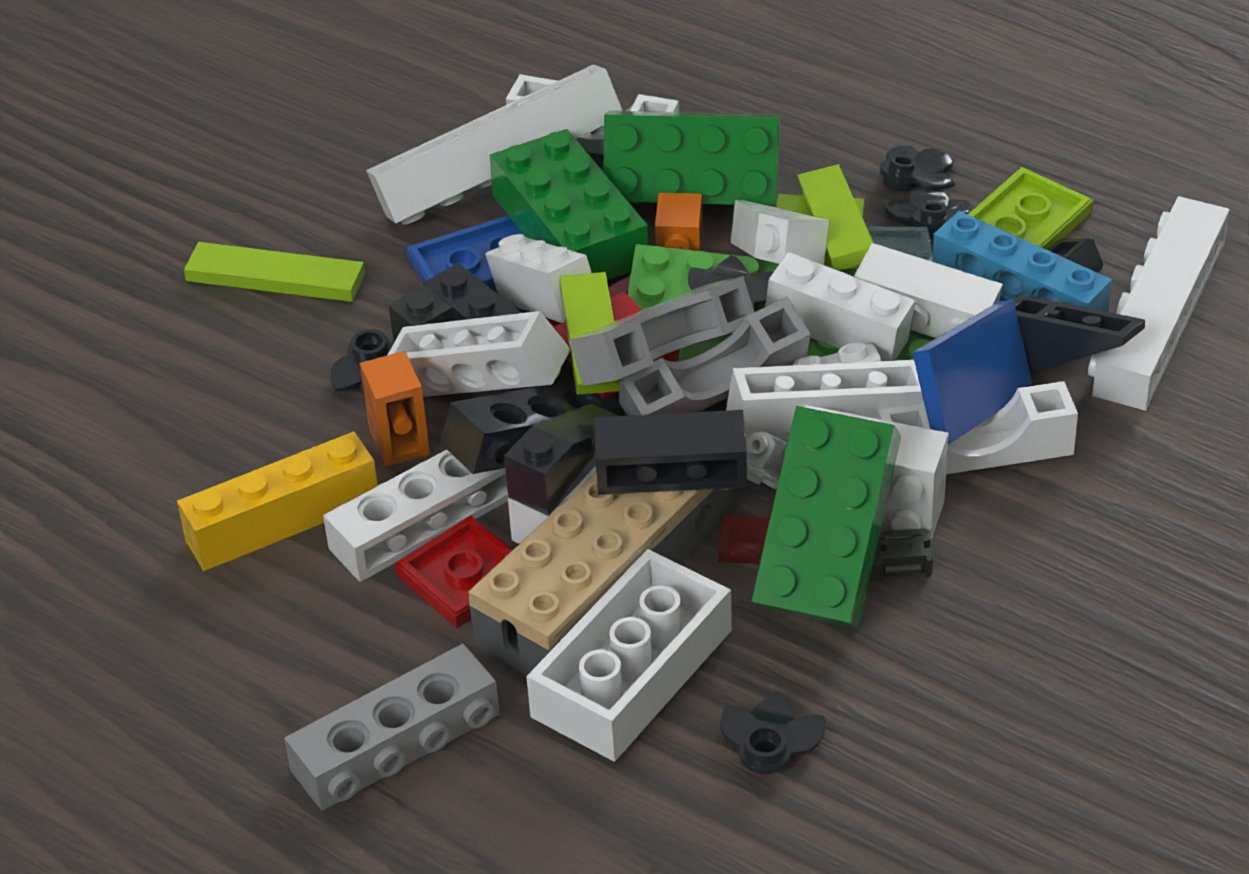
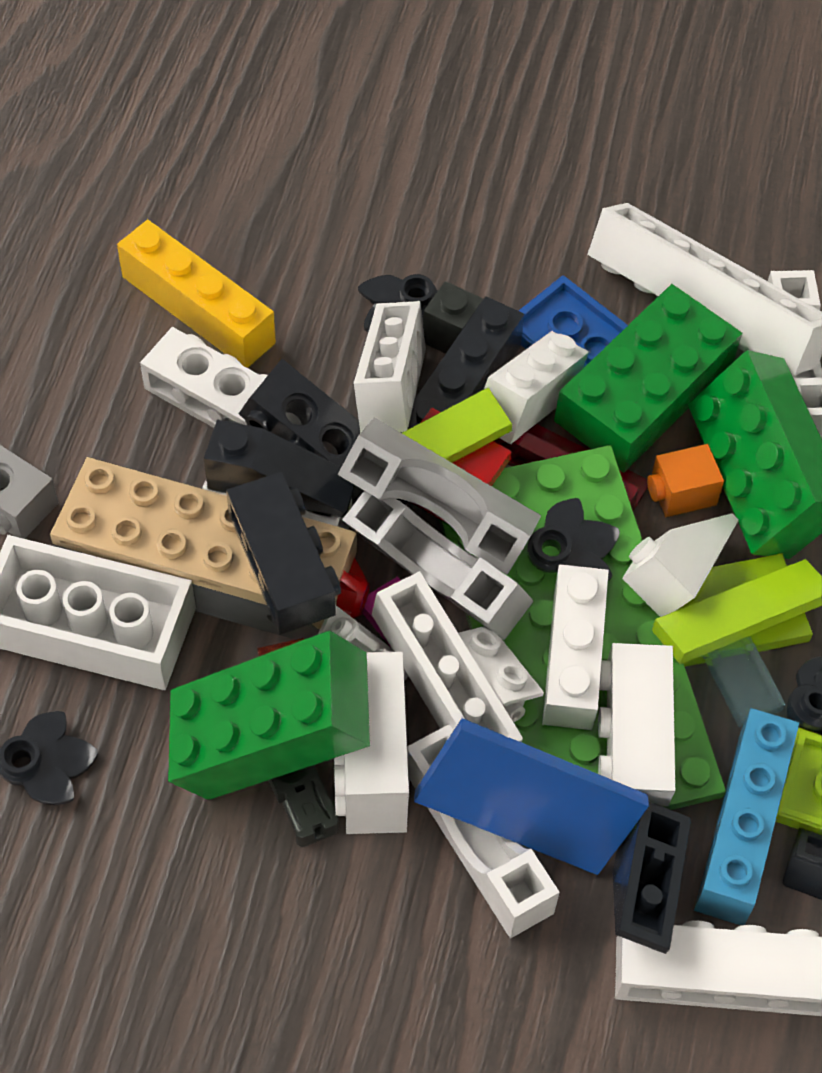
camera: 65 degrees right, 15 degrees up
(275, 271) = (493, 193): lime tile -> none
(395, 408) = (321, 331): orange brick -> none
(451, 566) = (169, 447): red tile -> none

